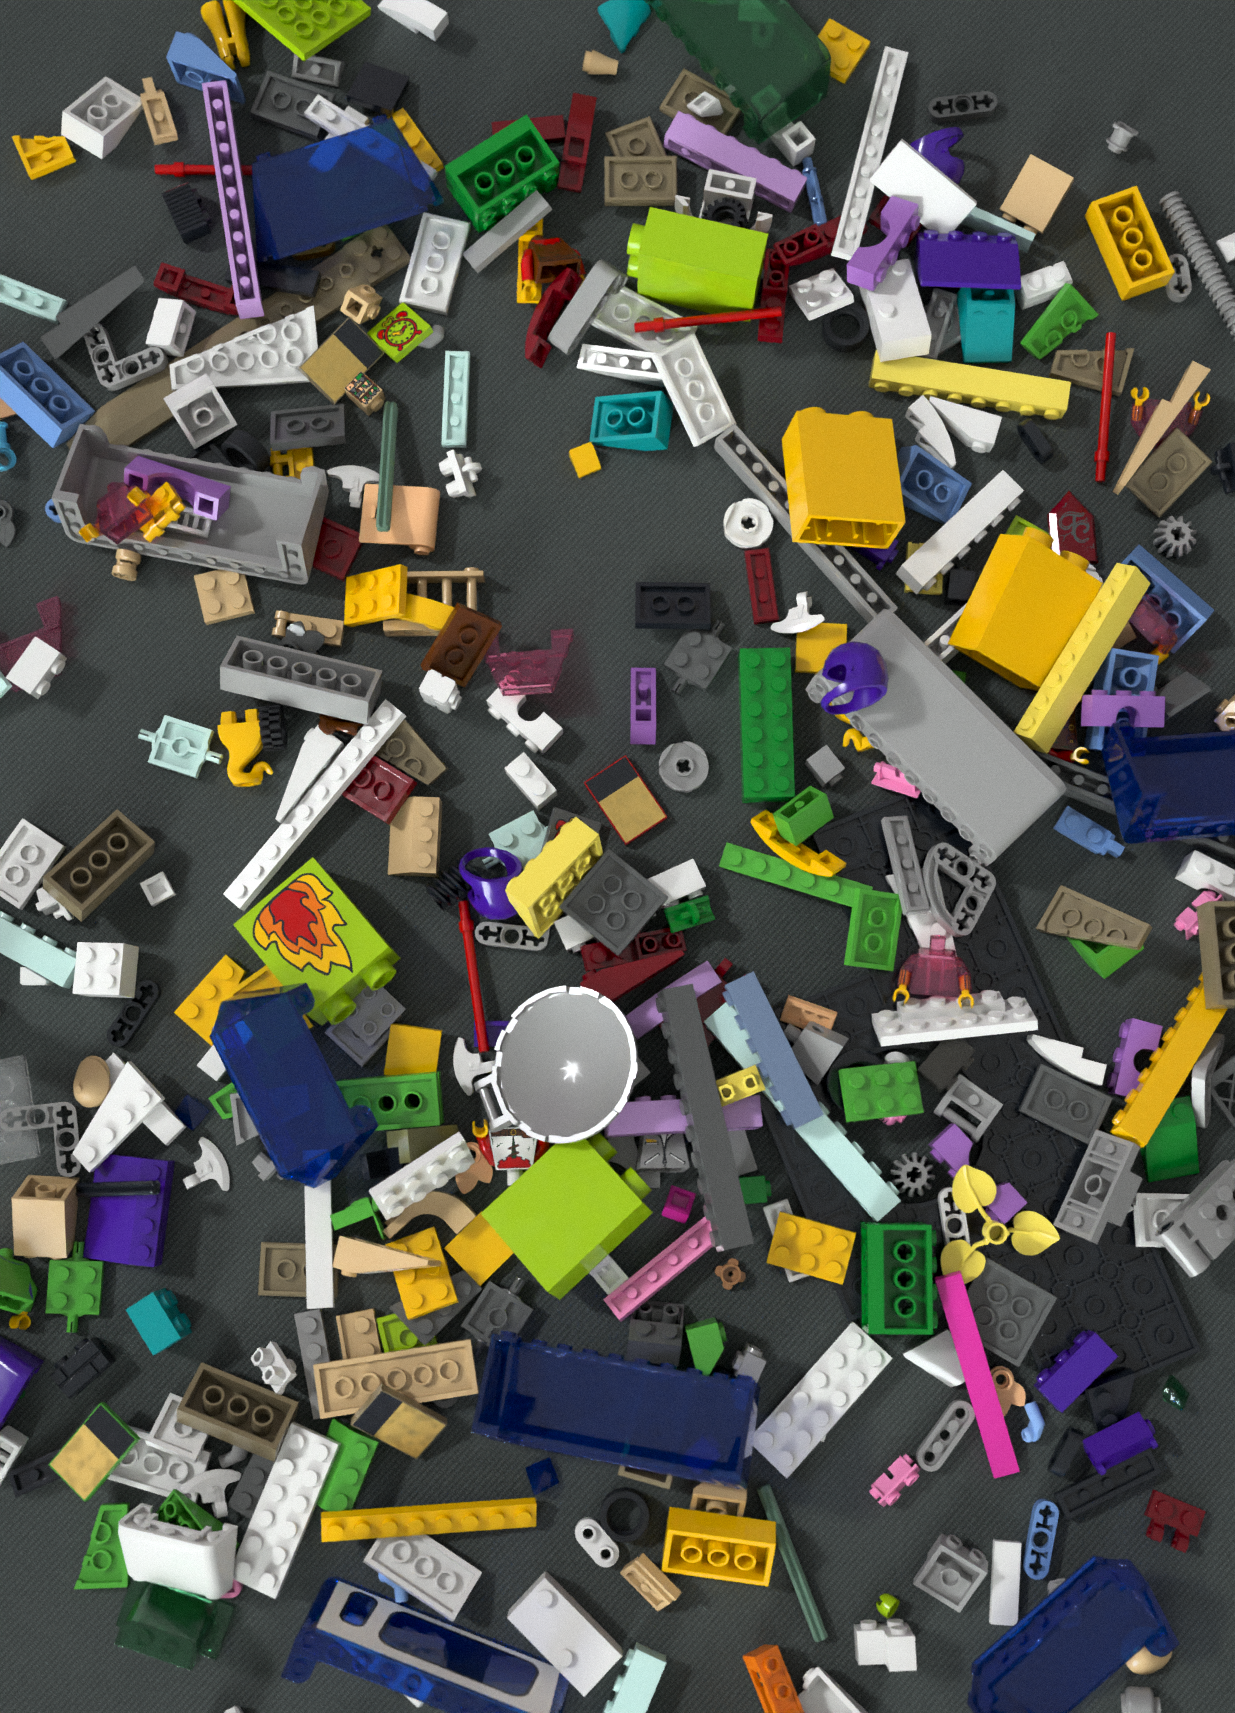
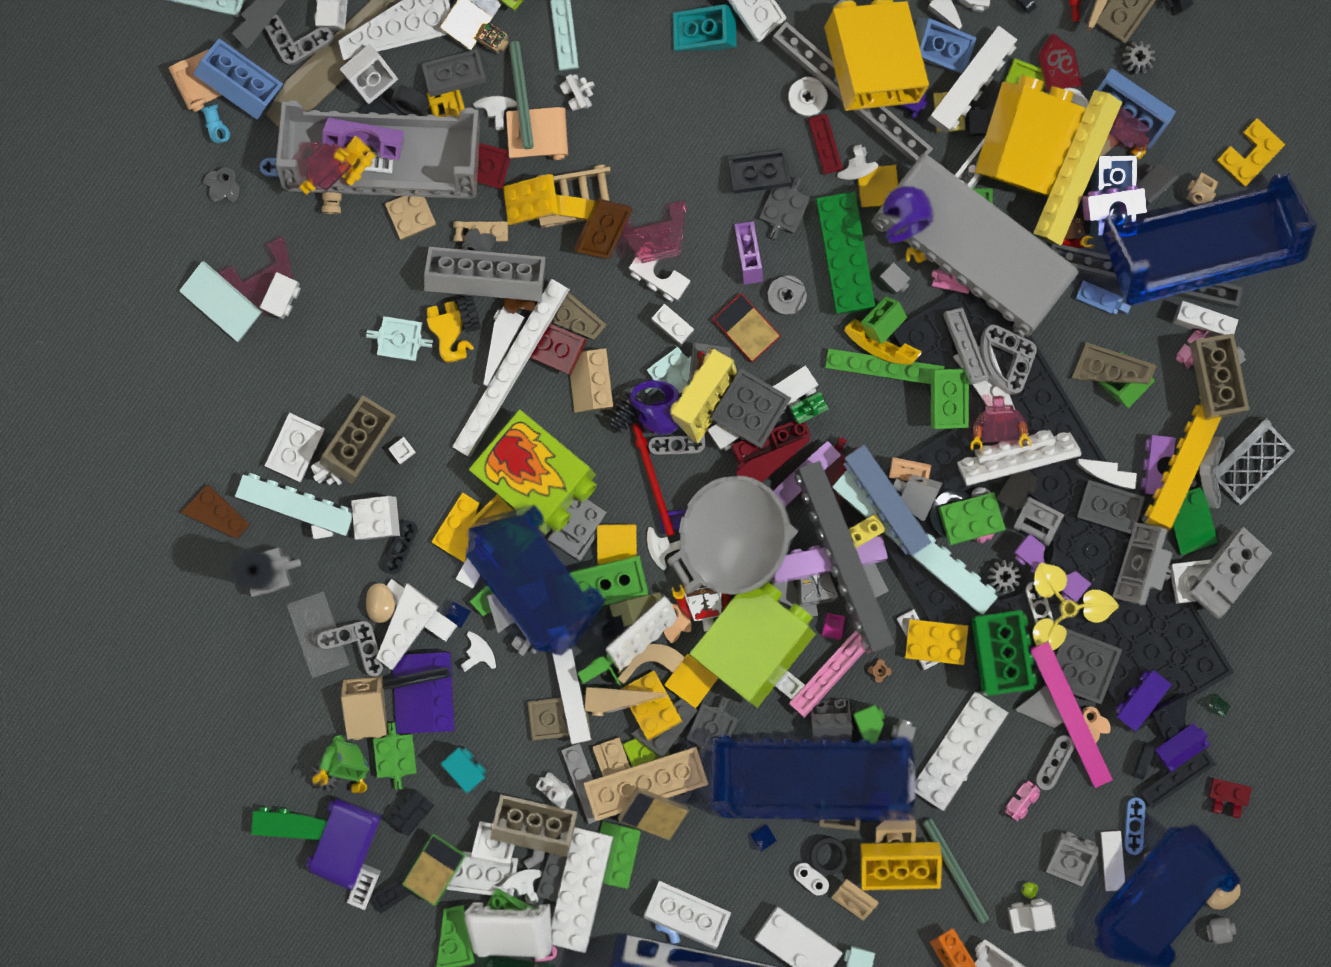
camera: 15 degrees left, 5 degrees up
(428, 1519) = (686, 880): yellow plate -> none
(440, 692) = (593, 267): white brick -> none
(584, 459) = (673, 65): yellow slope -> none
(755, 1189) = (889, 605): green brick -> none
(1036, 1423) = (1120, 745): light blue arm -> none

